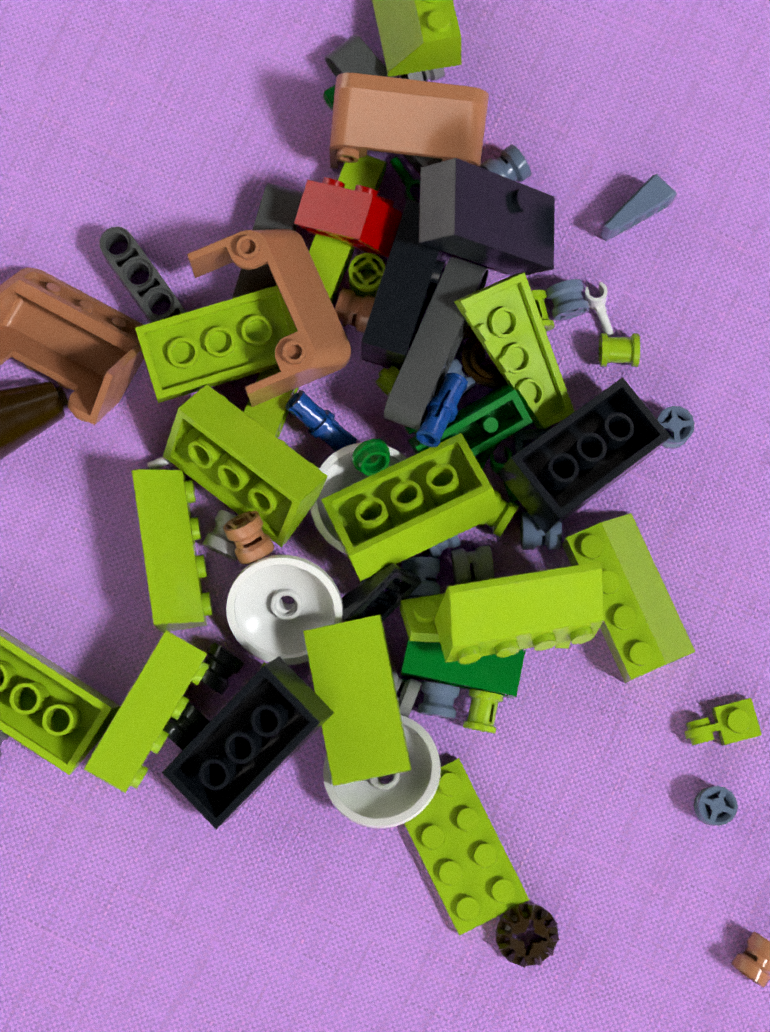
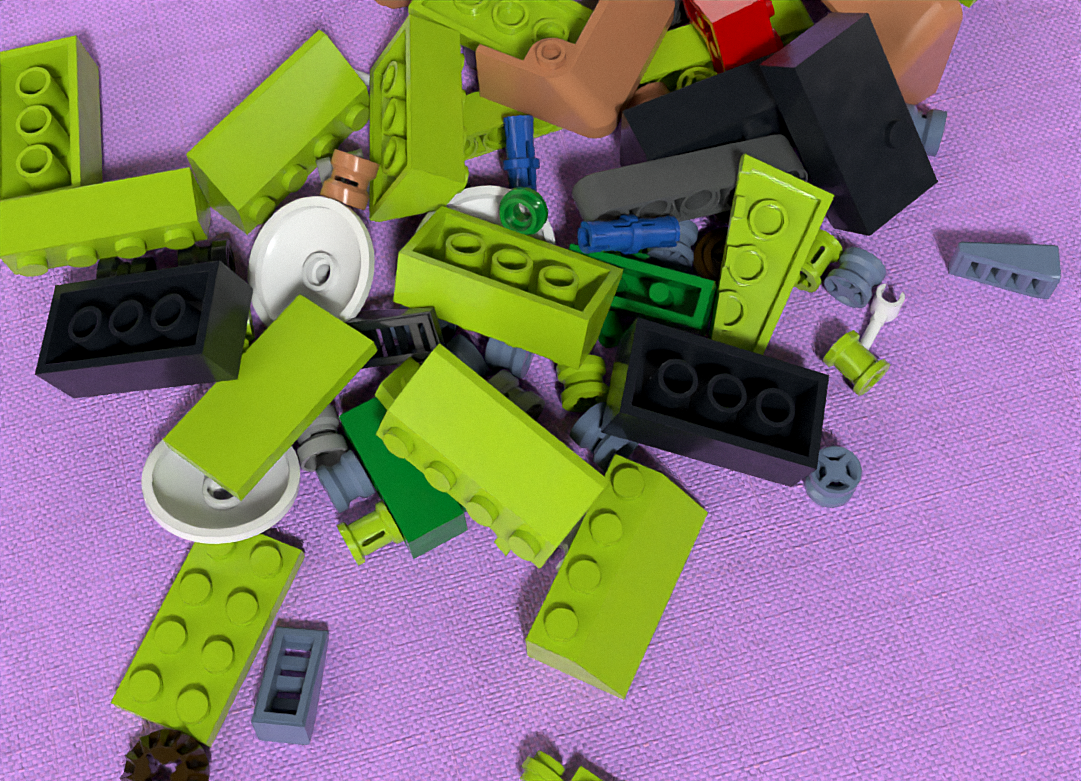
camera: 55 degrees right, 15 degrees down
(508, 801) = (284, 718): none -> sand blue slope

